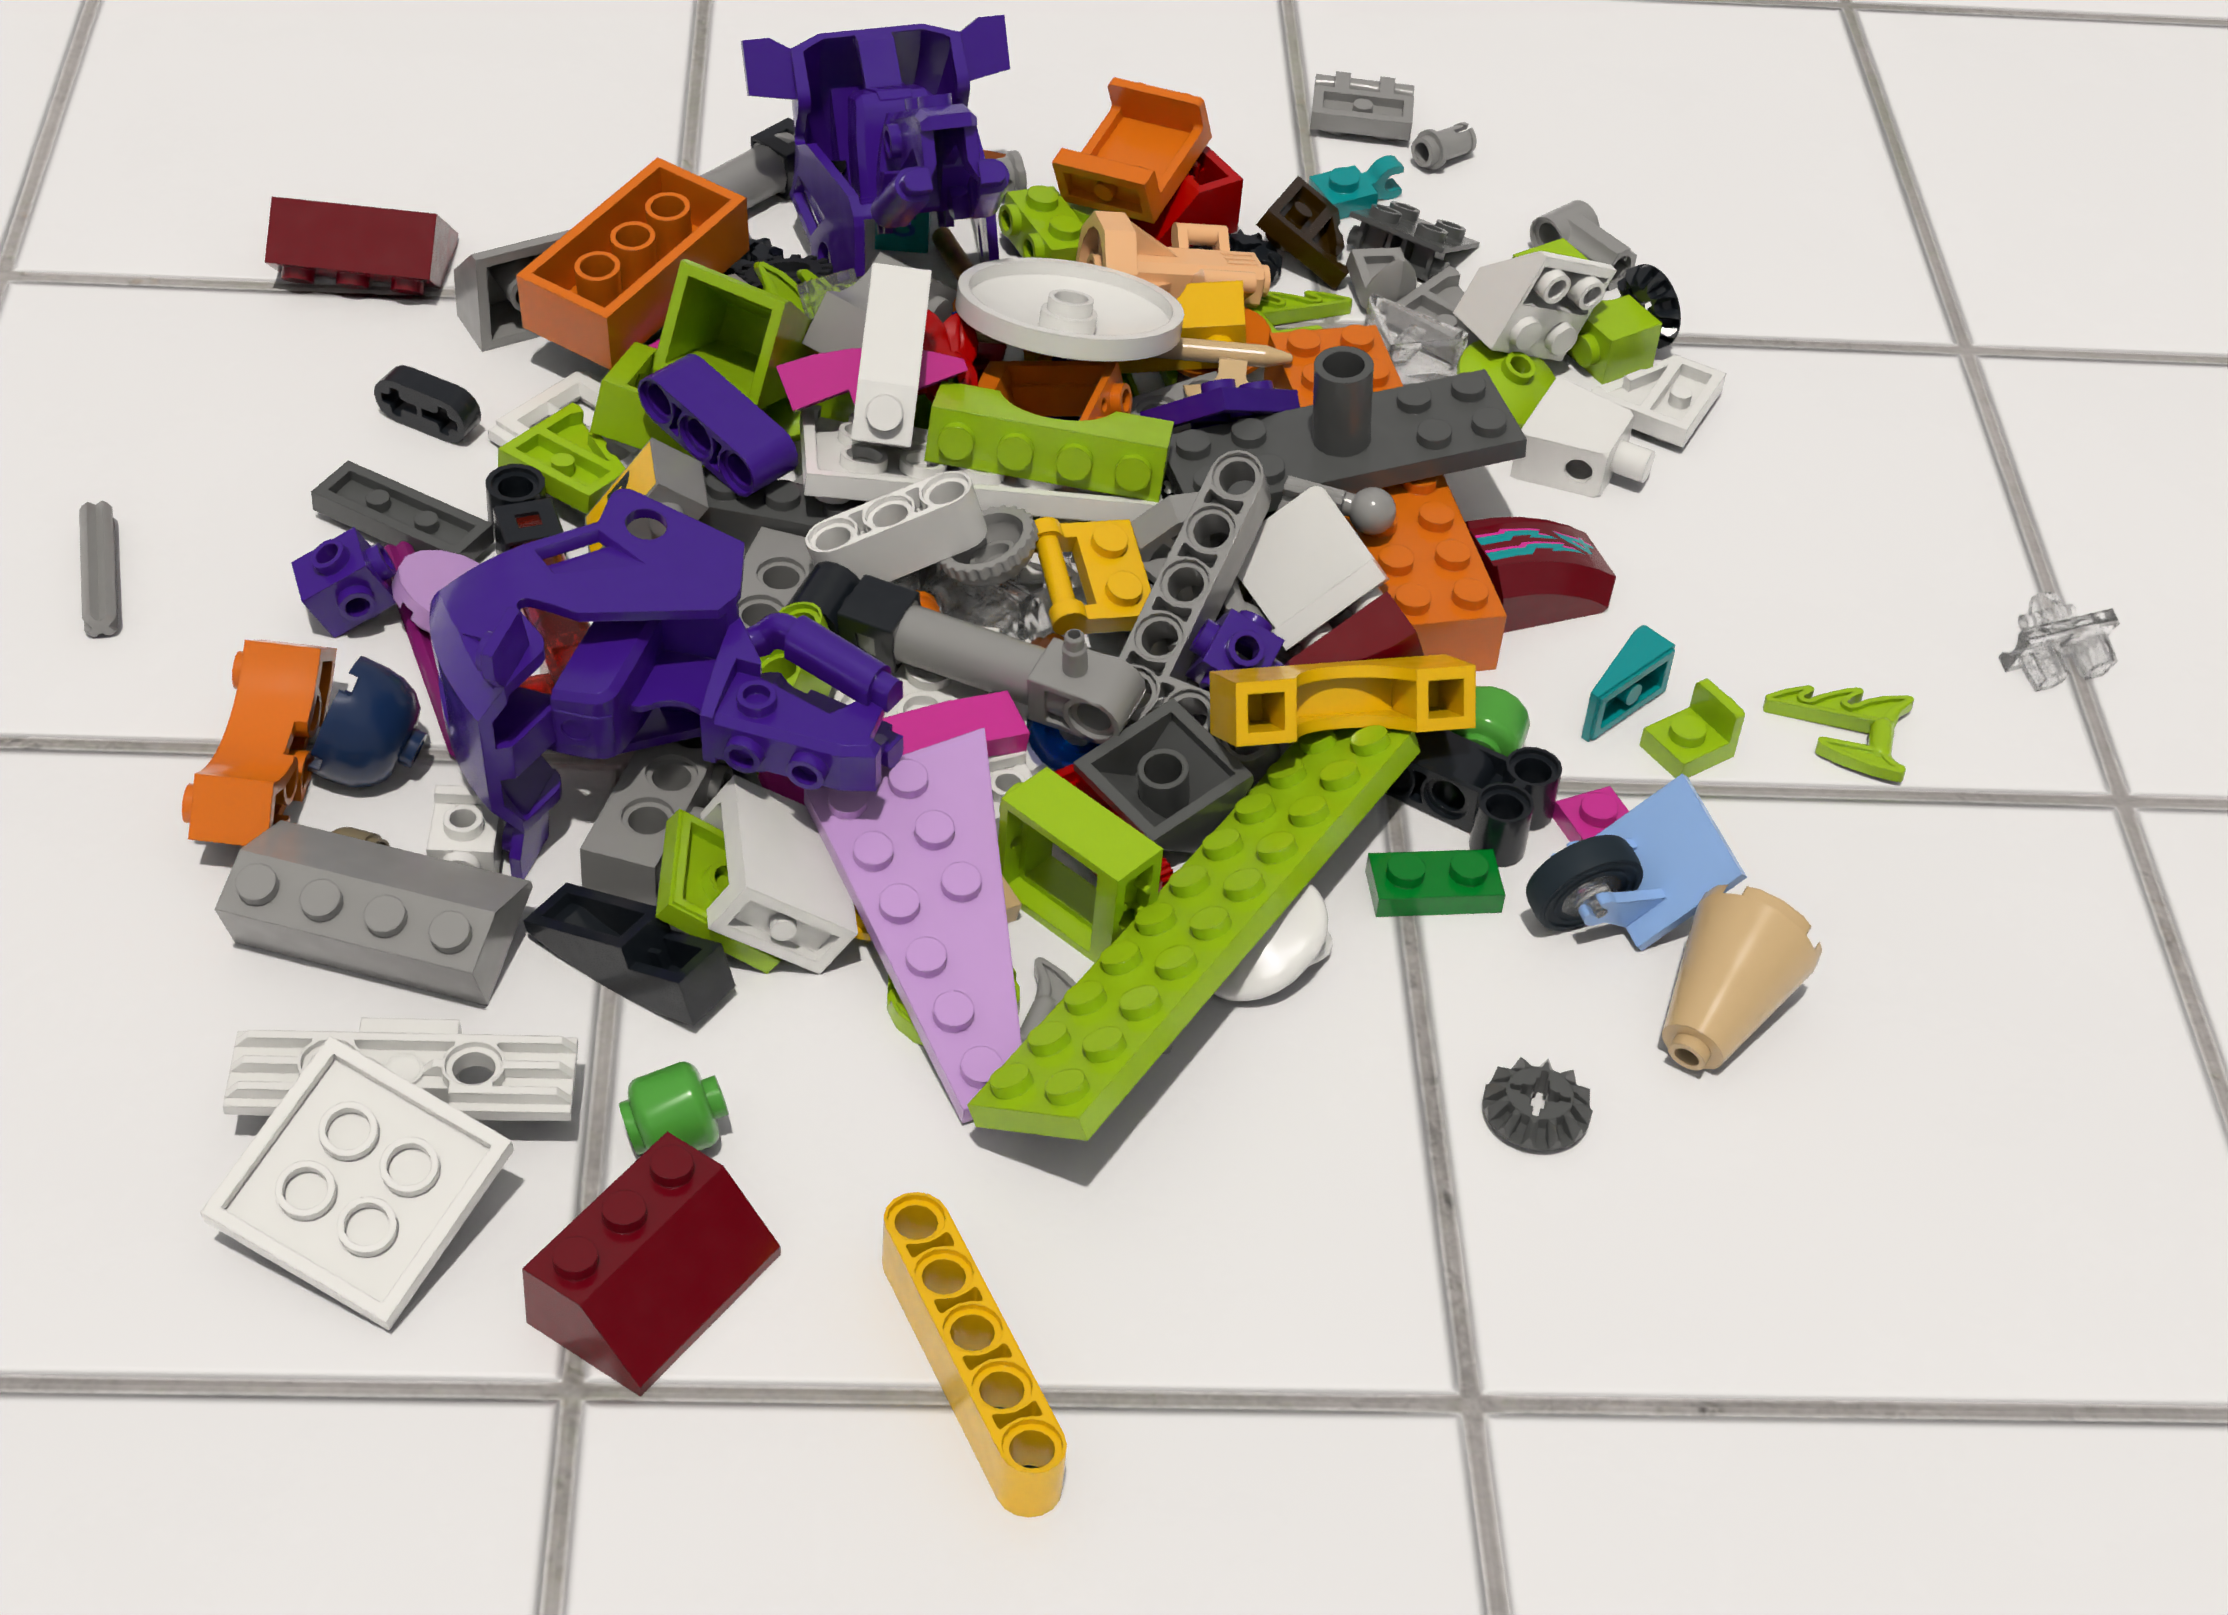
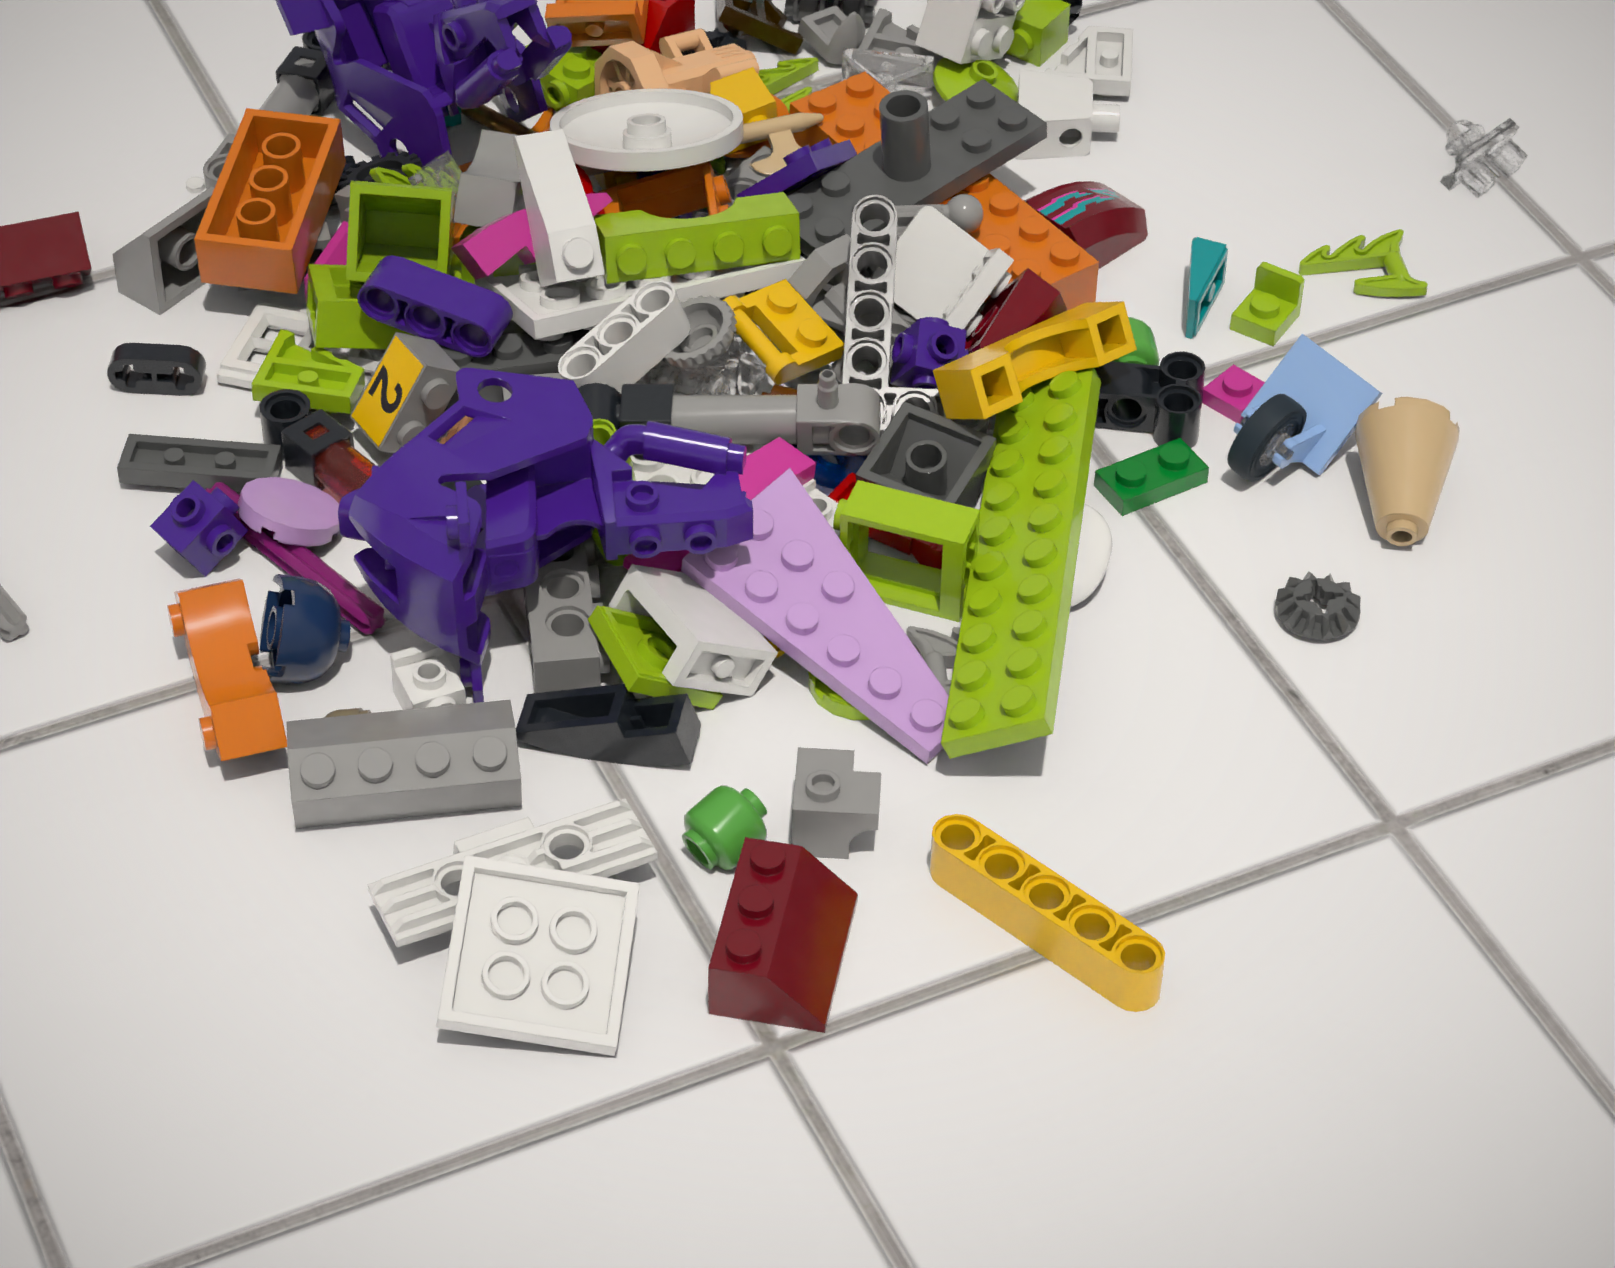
camera: 20 degrees left, 0 degrees up
(802, 1126) = (832, 801): none -> light grey brick

